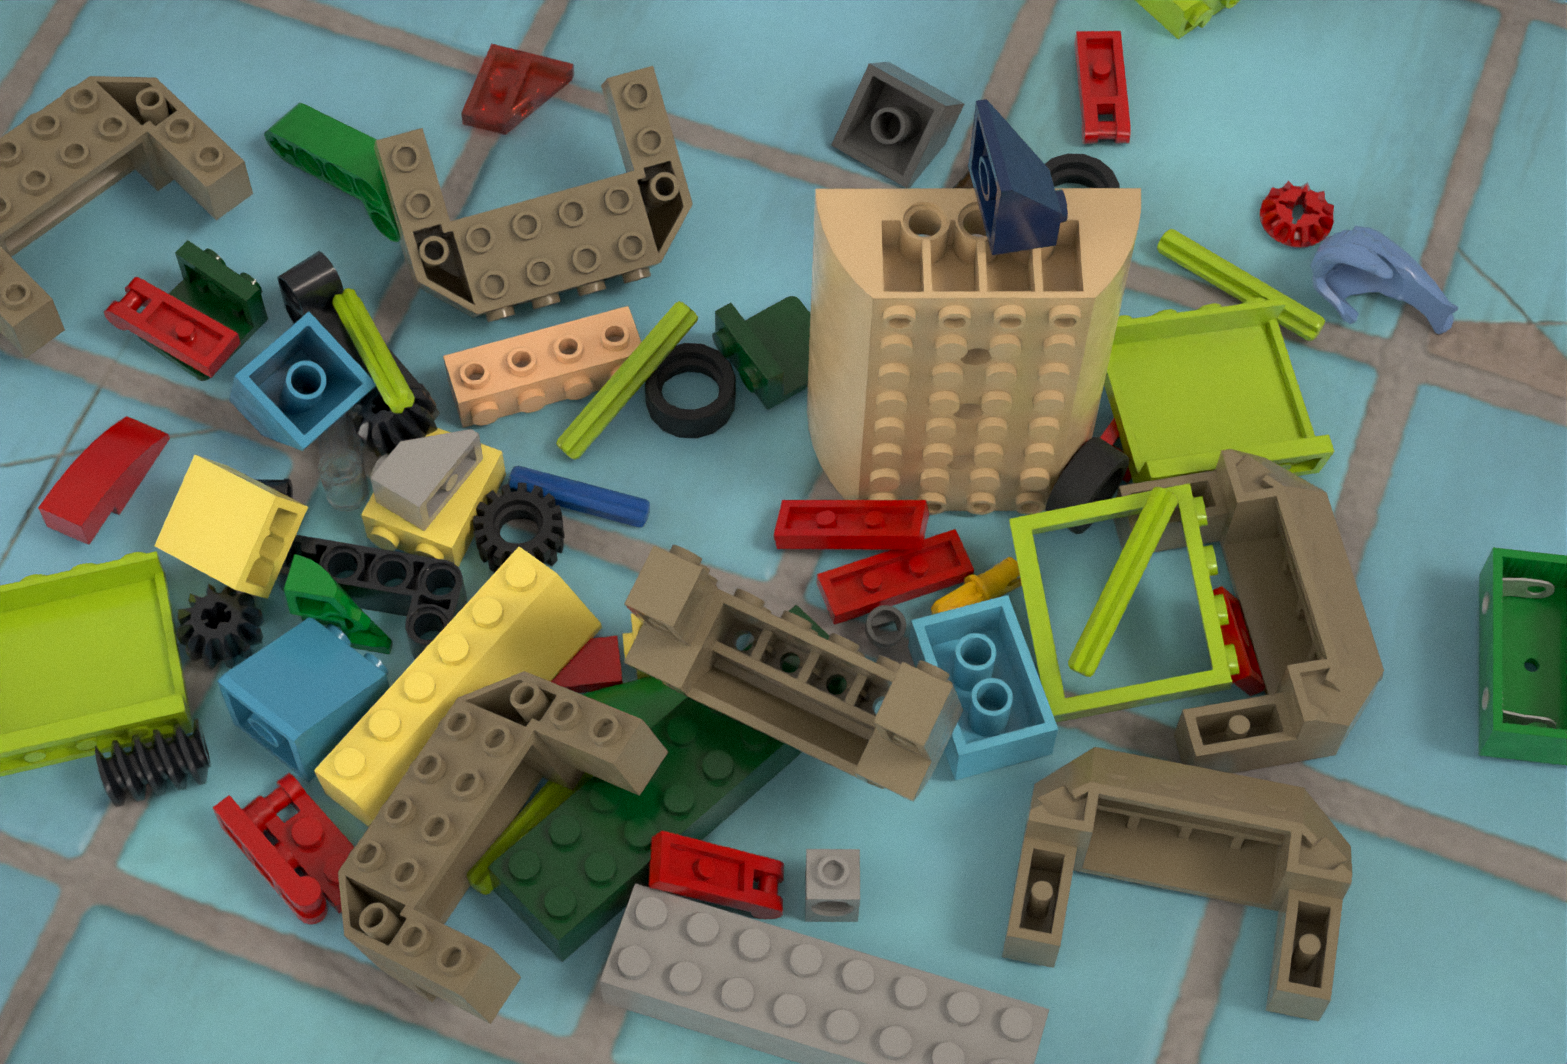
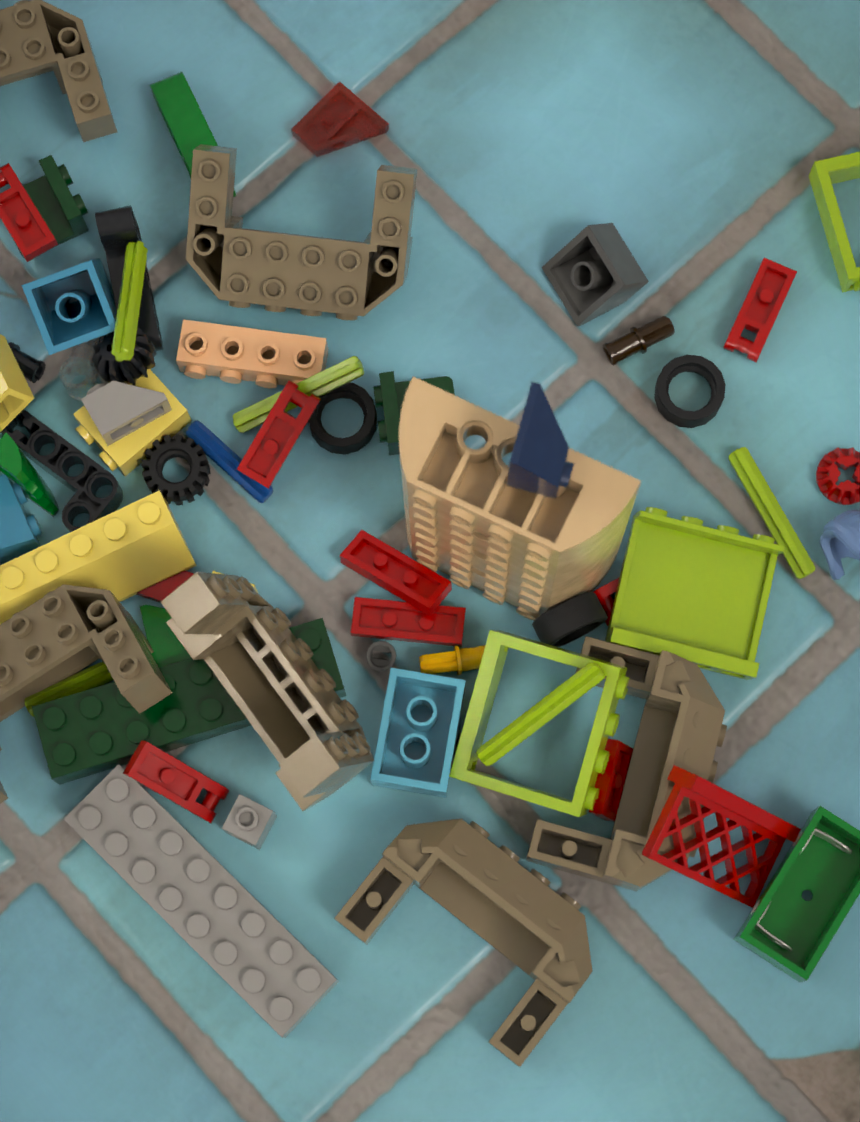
camera: 30 degrees right, 15 degrees up
(629, 431) = (278, 435): none -> red plate
(1403, 593) = (725, 806): none -> red fence

